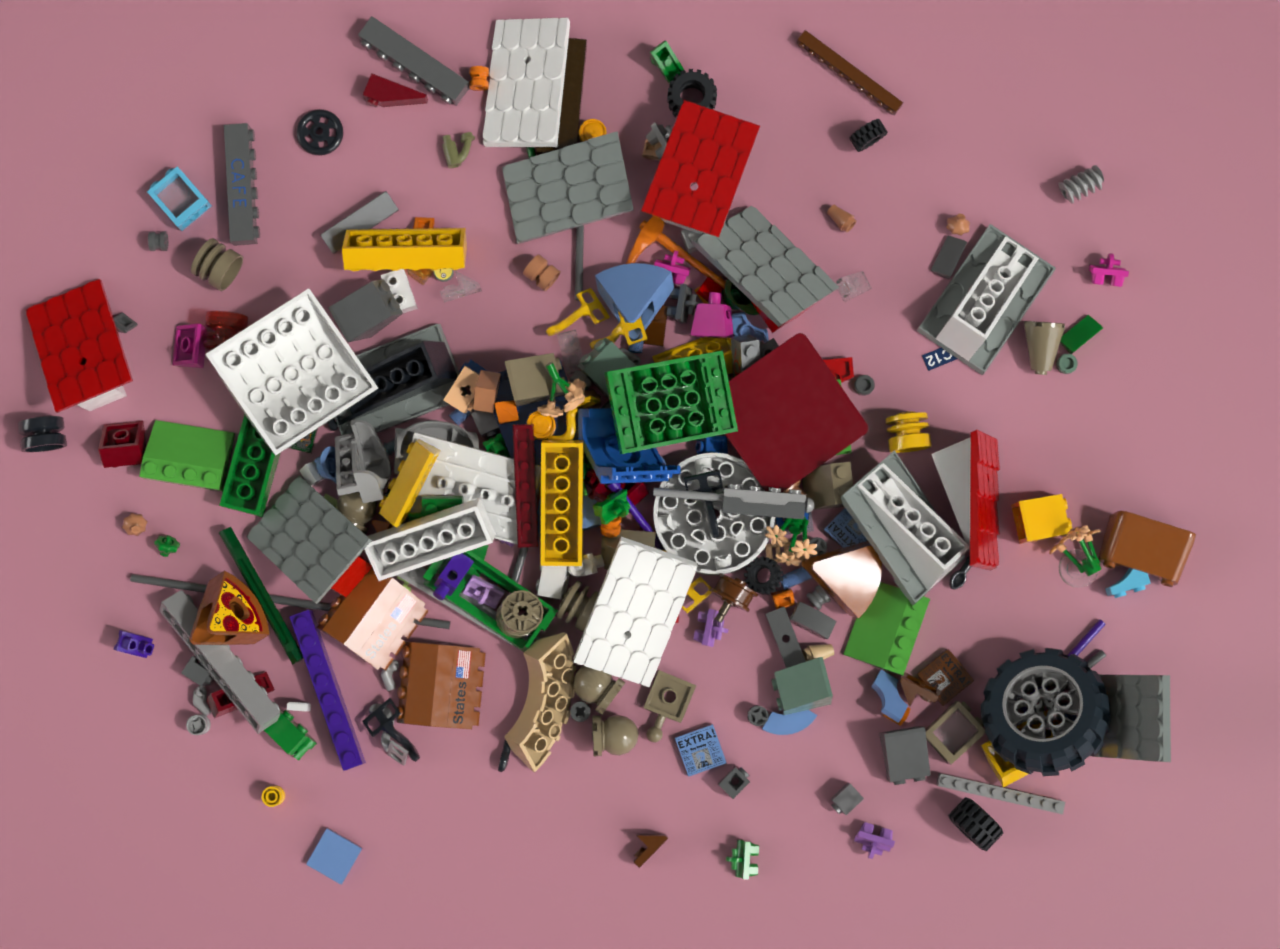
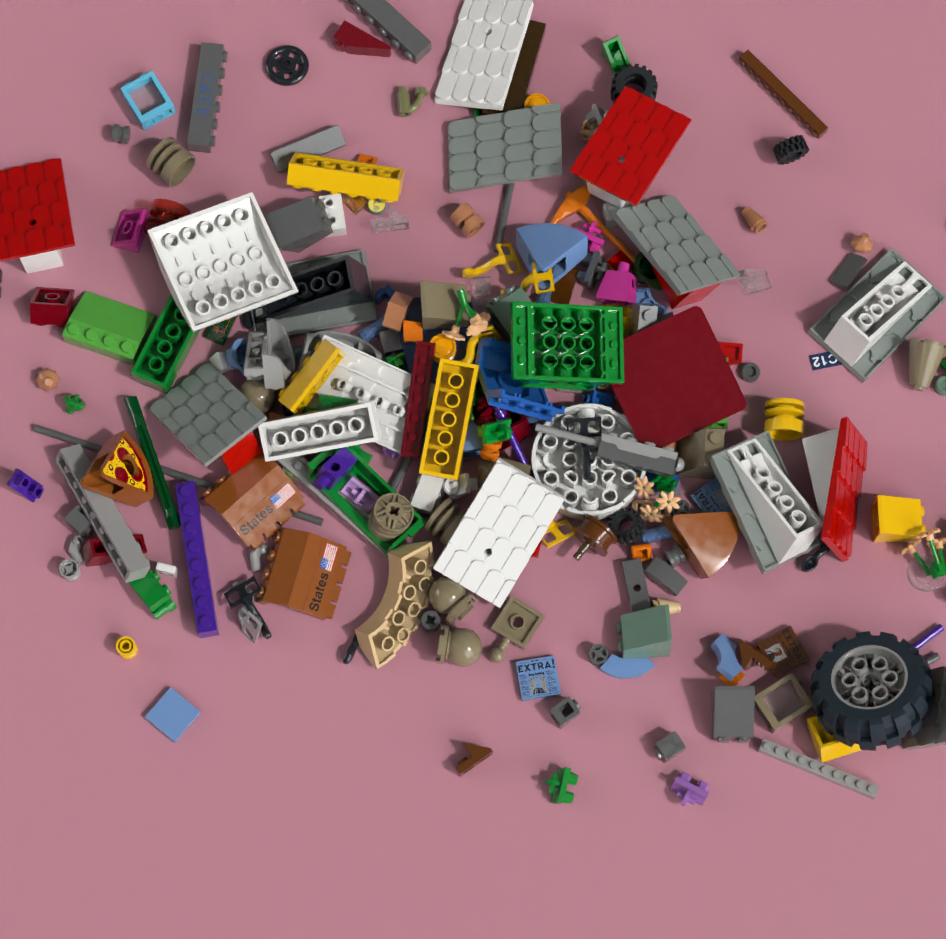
camera: 10 degrees right, 10 degrees down
(124, 323) = (75, 200): dark grey slope -> none
(456, 397) = (368, 313): light nougat brick -> none
(479, 78) = (441, 41): orange wheel -> none
(713, 628) = (569, 567): medium lavender hips -> none
(887, 630) = (734, 596): bright green slope -> none
(976, 824) = (789, 788): black tyre -> none

